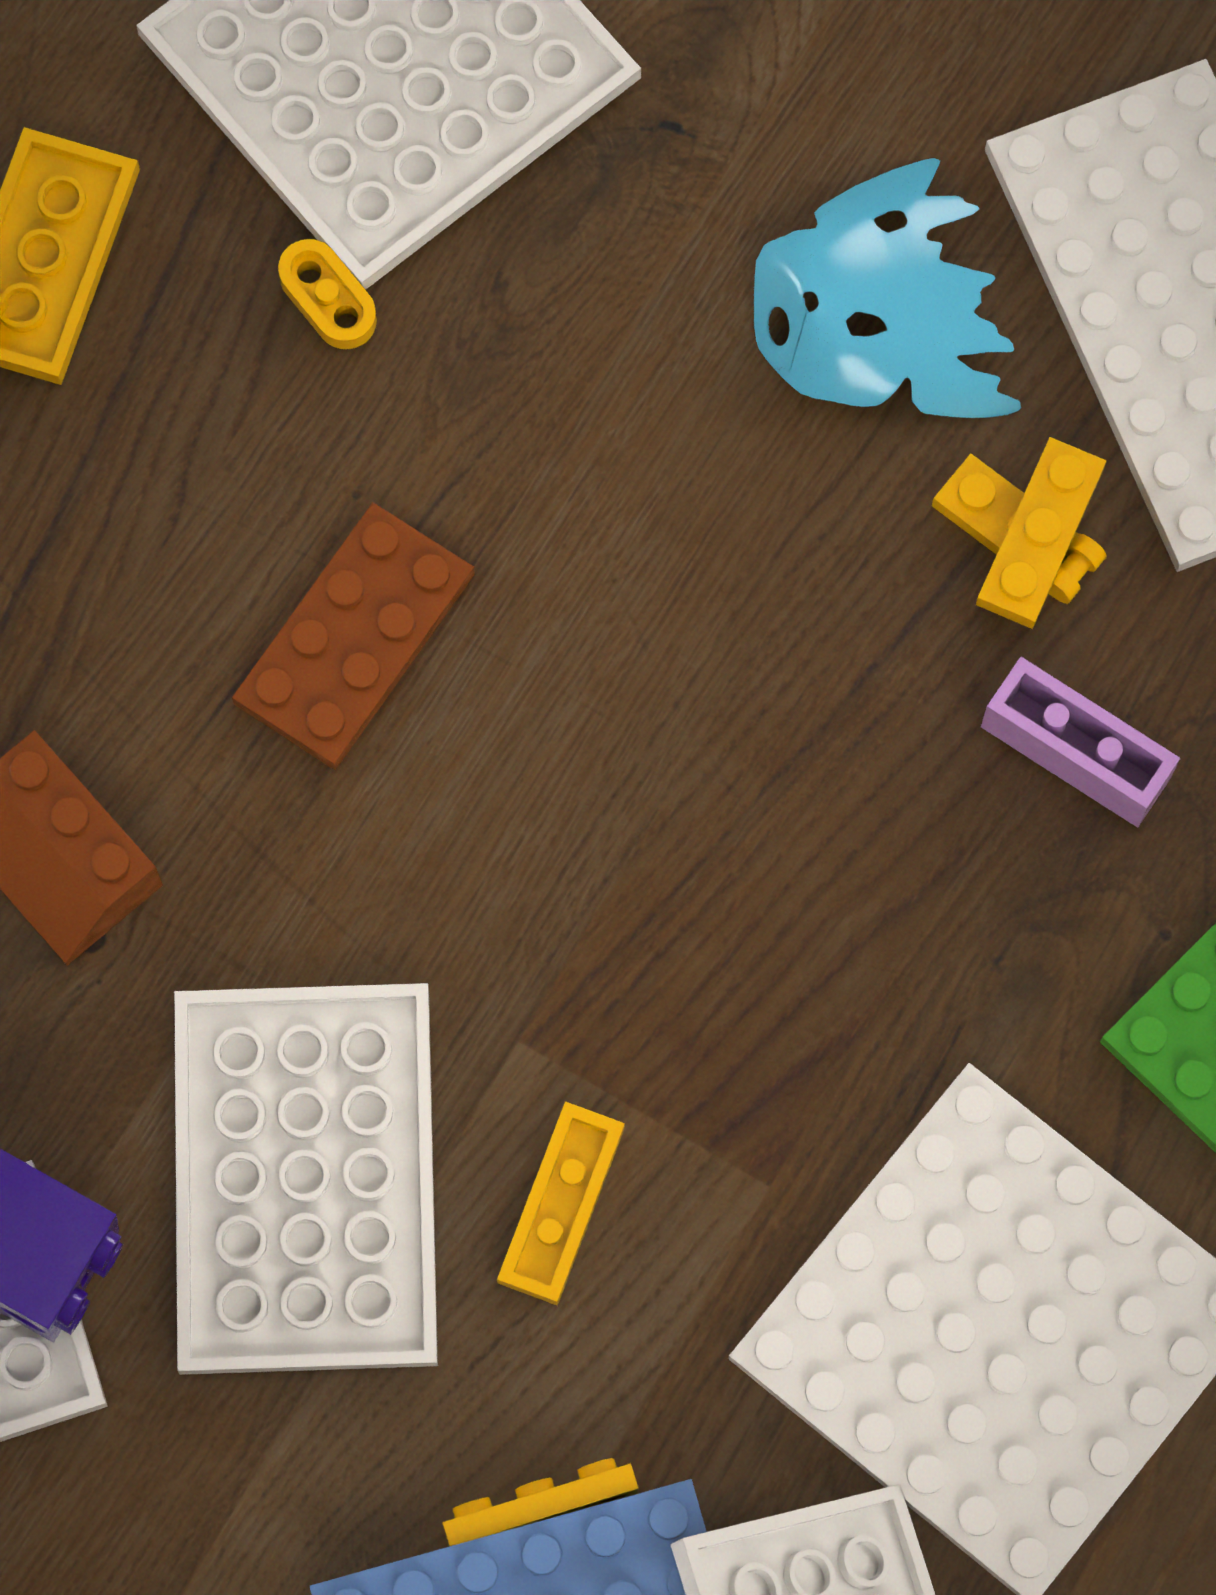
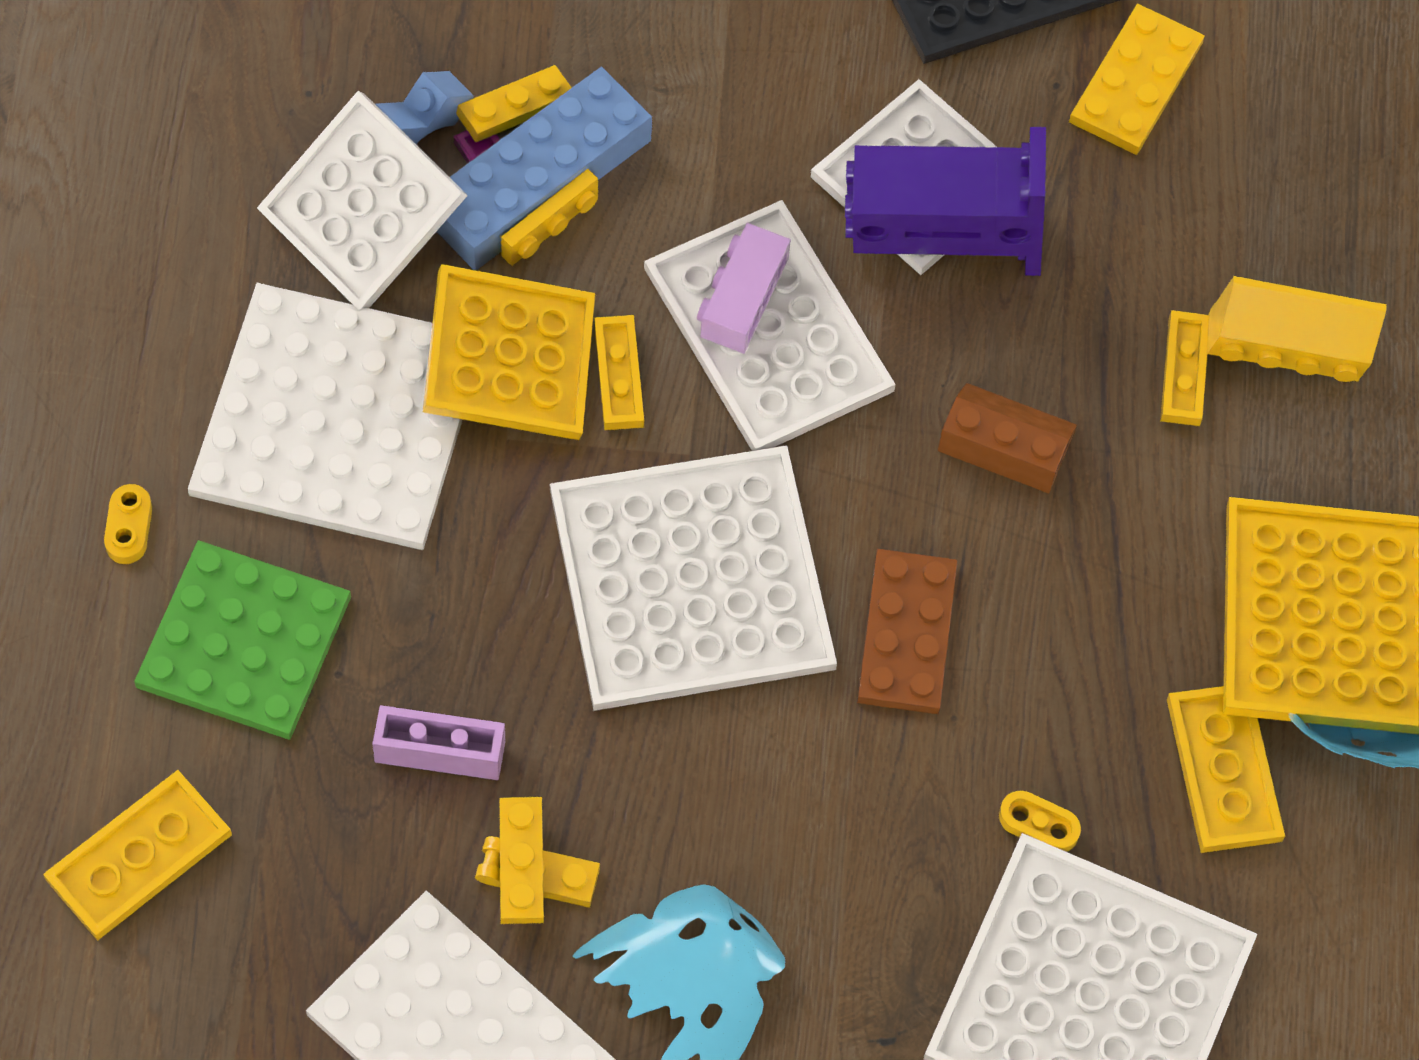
camera: 150 degrees right, 10 degrees down
(319, 1228) = (743, 287): none -> lavender brick
(612, 843) = (691, 577): none -> white plate
(712, 1295) = (509, 352): none -> yellow plate

